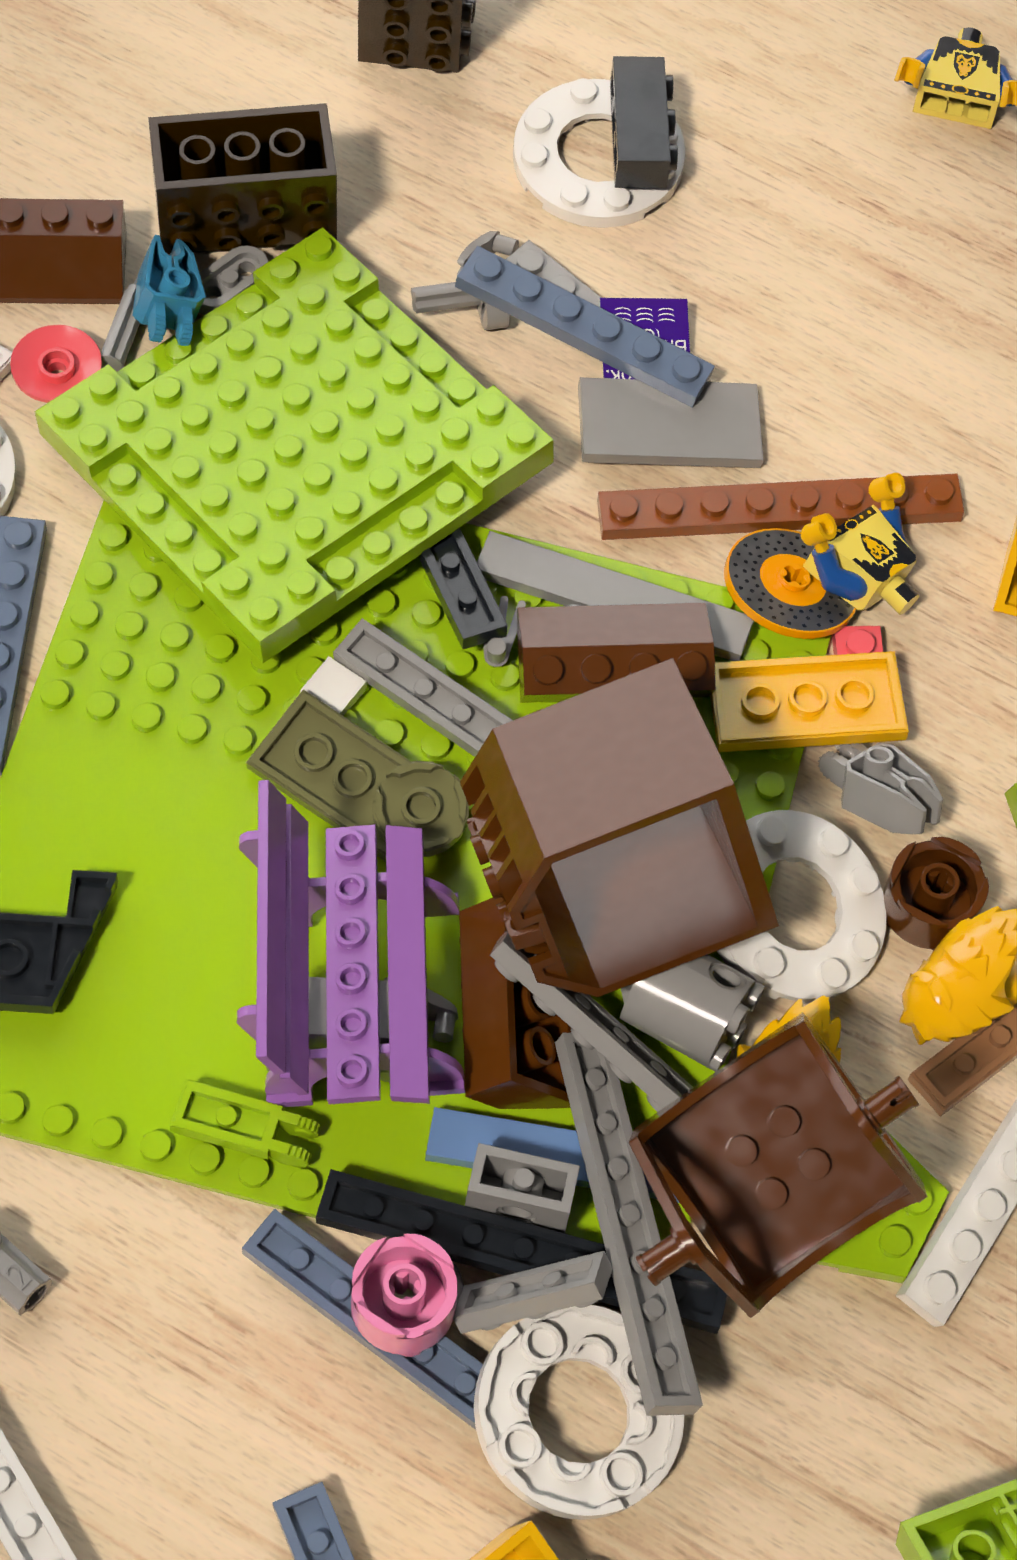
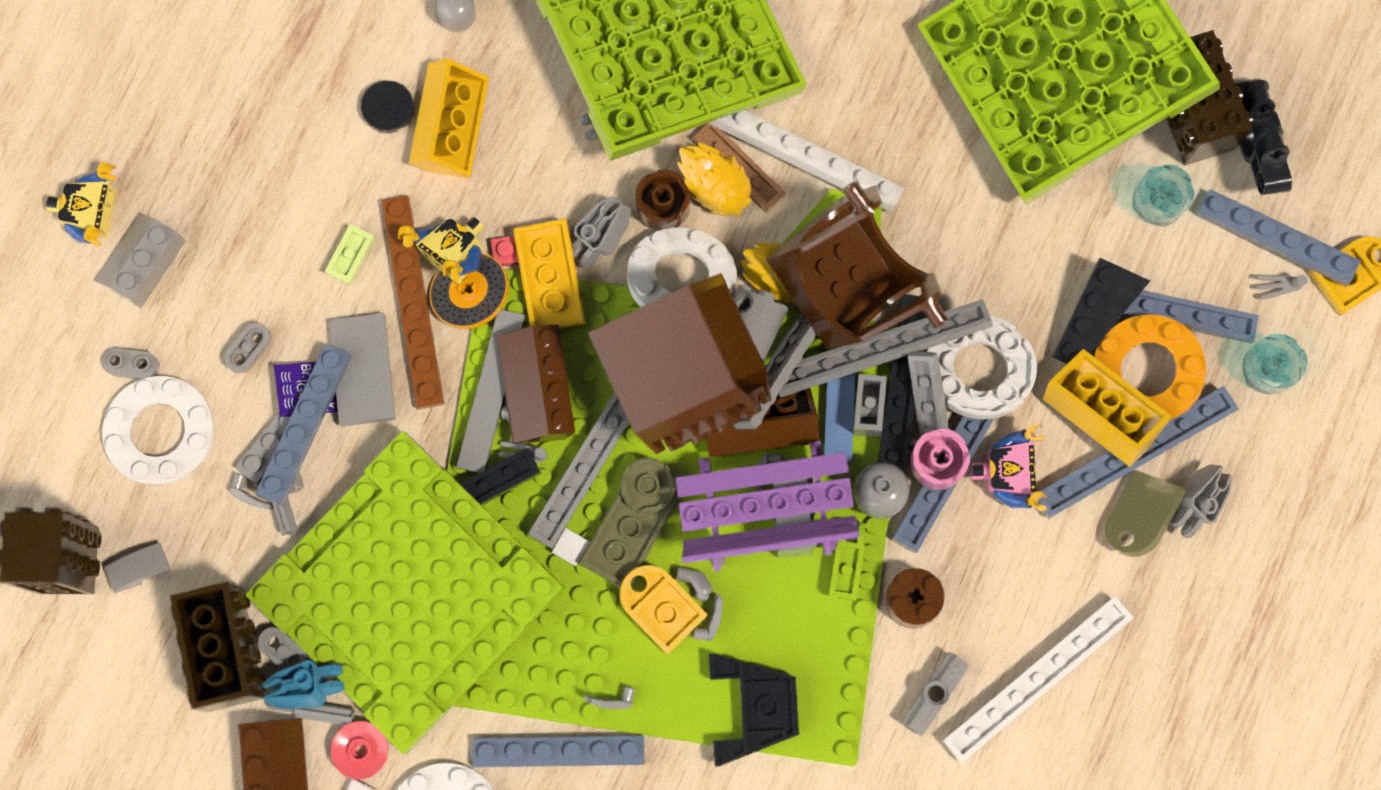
camera: 90 degrees left, 15 degrees up
(62, 720) = (614, 703): none -> light grey piece
(151, 1202) = (926, 587): none -> reddish brown brick
(175, 895) = (708, 634): none -> light grey piece
(206, 809) = (661, 607): none -> yellow tile
(235, 880) = (698, 580): none -> light grey arm
(360, 1184) = (881, 490): none -> light grey cylinder
(371, 1443) = (1012, 470): none -> torso
(388, 106) = (137, 566): none -> light grey slope
(642, 122) = (144, 401): brick -> none
(710, 122) = (130, 364): none -> light grey plate
(722, 273) = (247, 347): none -> light grey plate
(865, 421) = (350, 254): none -> yellowish green plate
(870, 147) = (141, 260): none -> light grey slope

